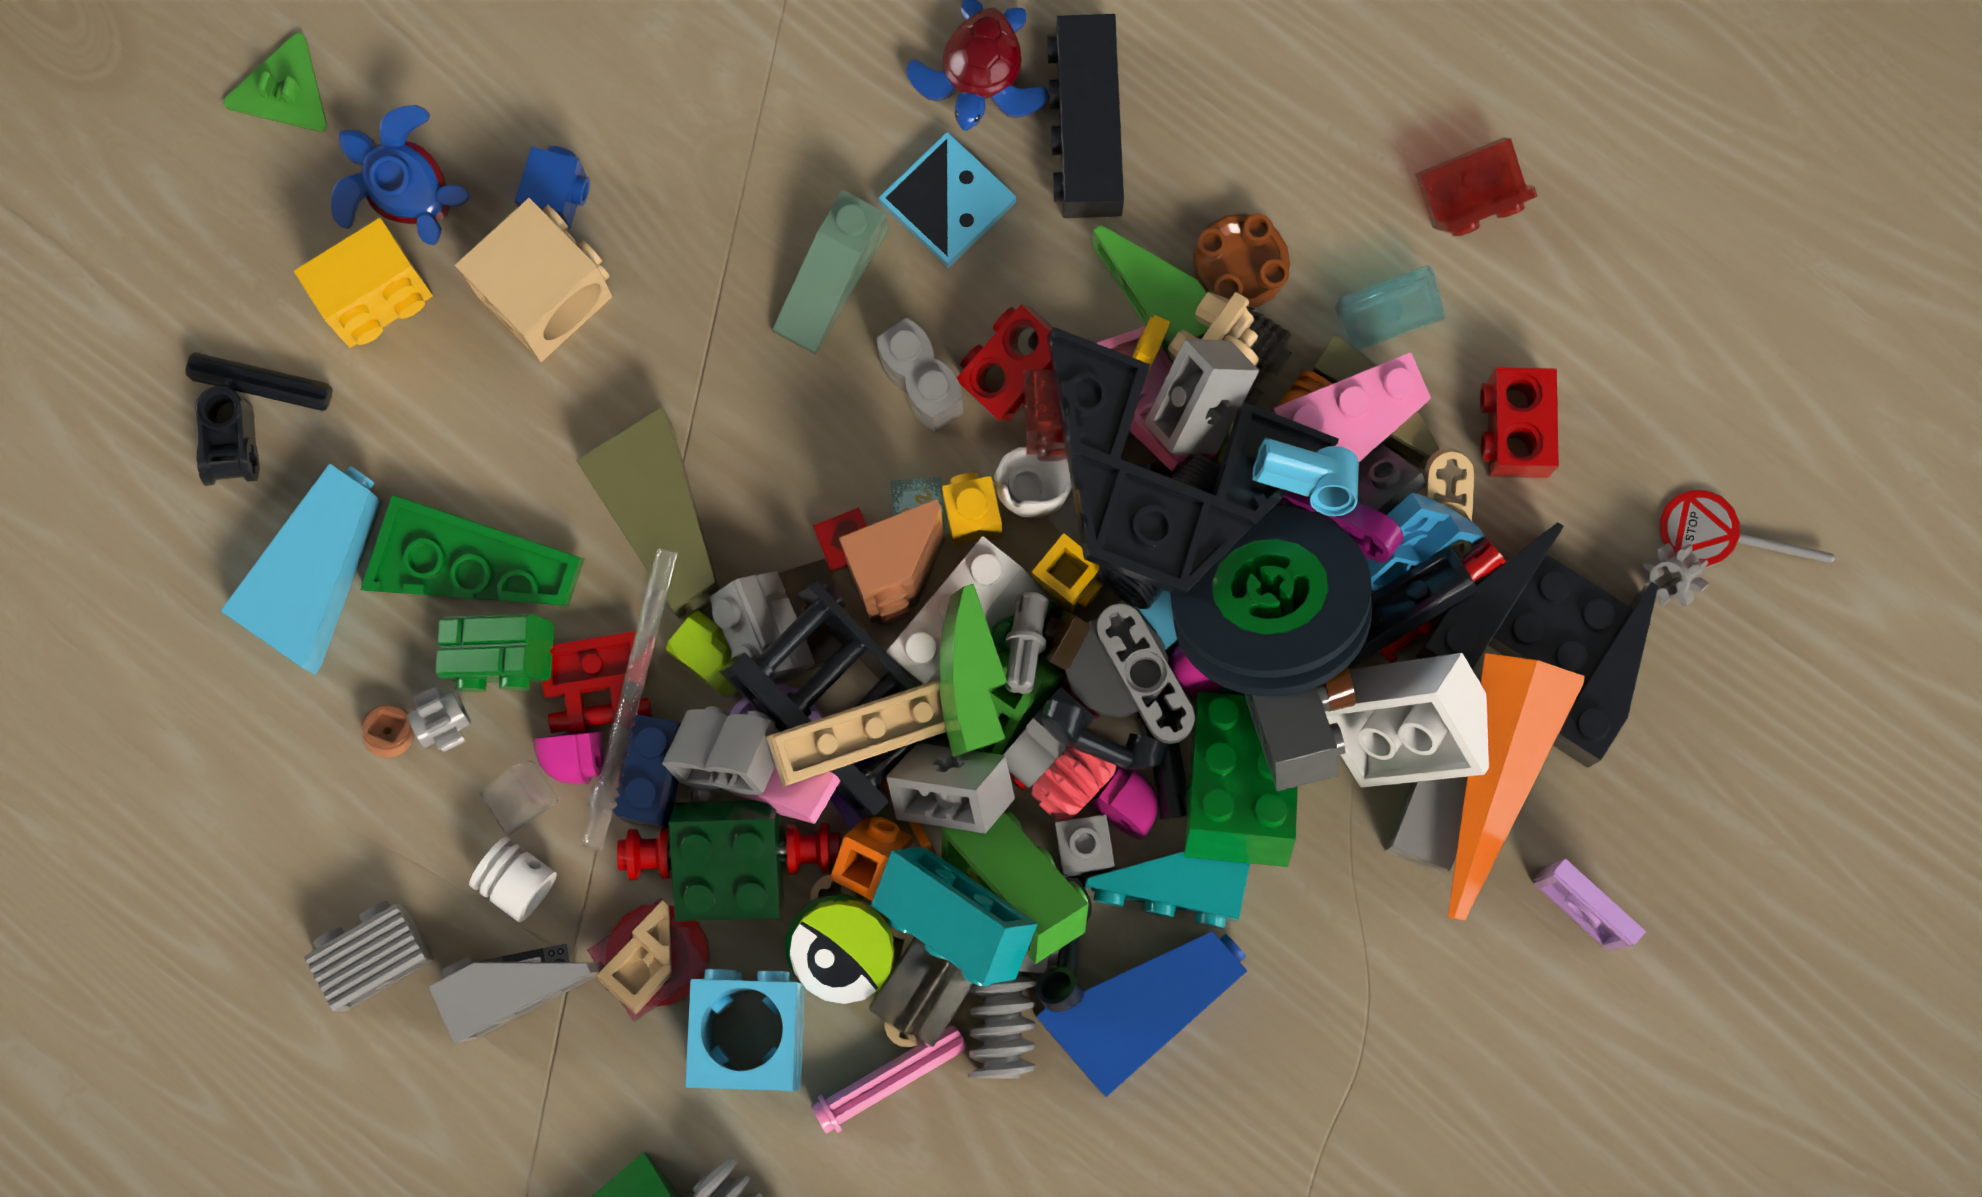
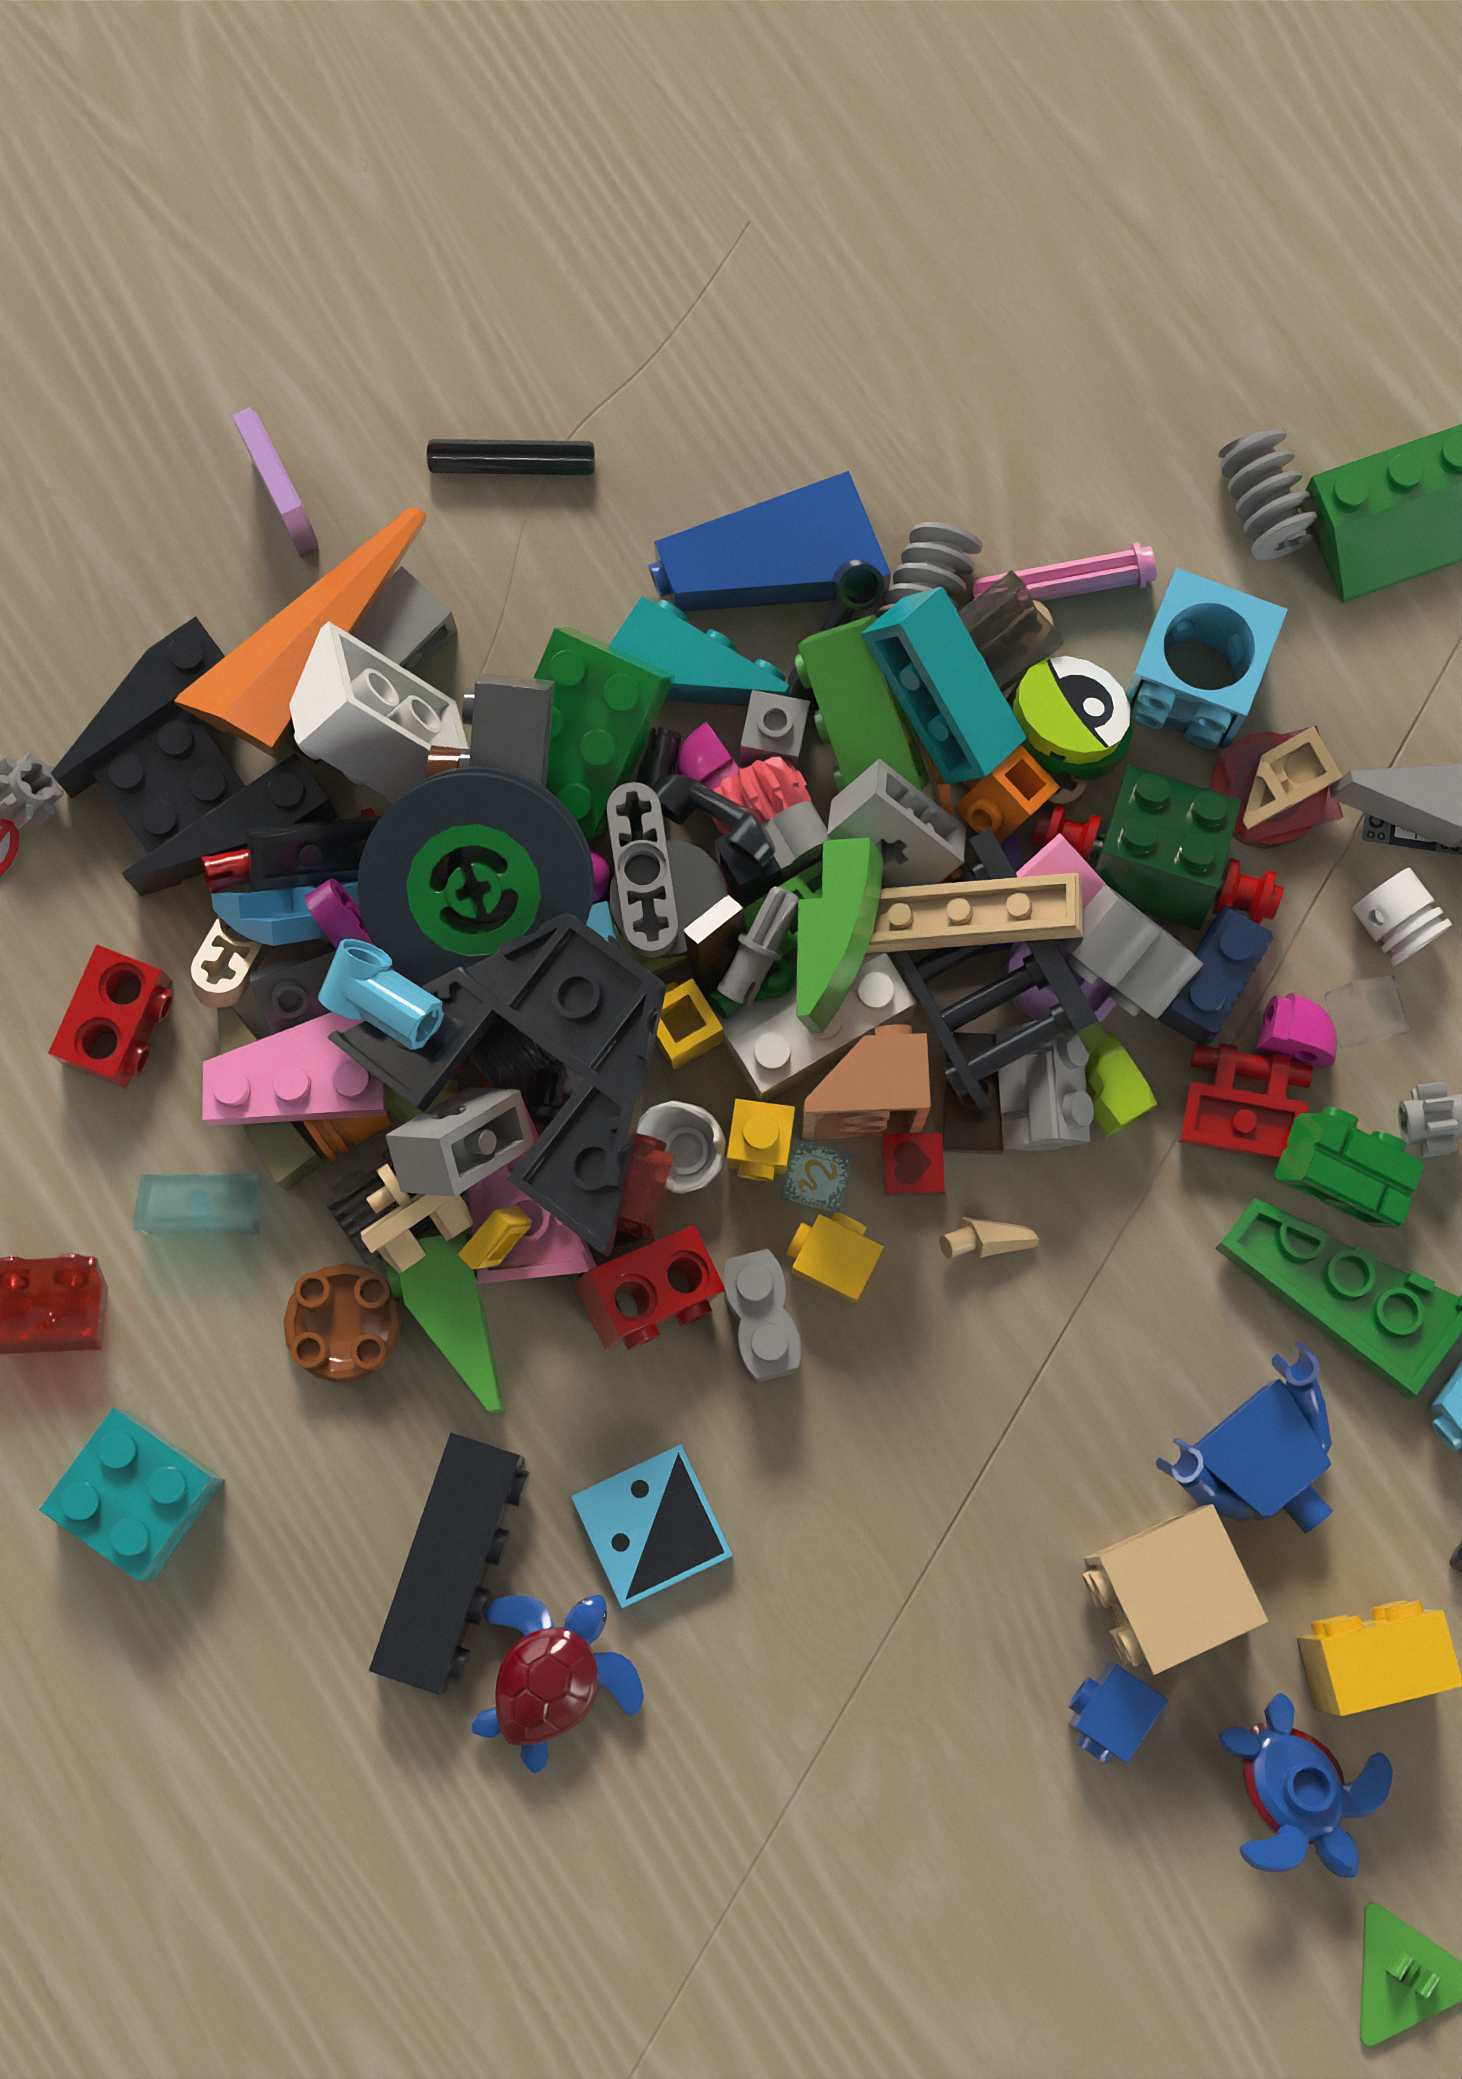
camera: 160 degrees left, 0 degrees up
(500, 409) = (1264, 1451): none -> blue torso
(604, 793) = (1270, 975): clear bar -> none
(652, 502) = (1119, 1275): olive slope -> none
(767, 502) = (986, 1238): none -> tan bar
(831, 271) = (822, 1480): sand green slope -> none
(880, 442) = (834, 1256): none -> yellow brick
(1344, 78) = (131, 1495): none -> teal brick
(1402, 1016) = (510, 457): none -> black axle

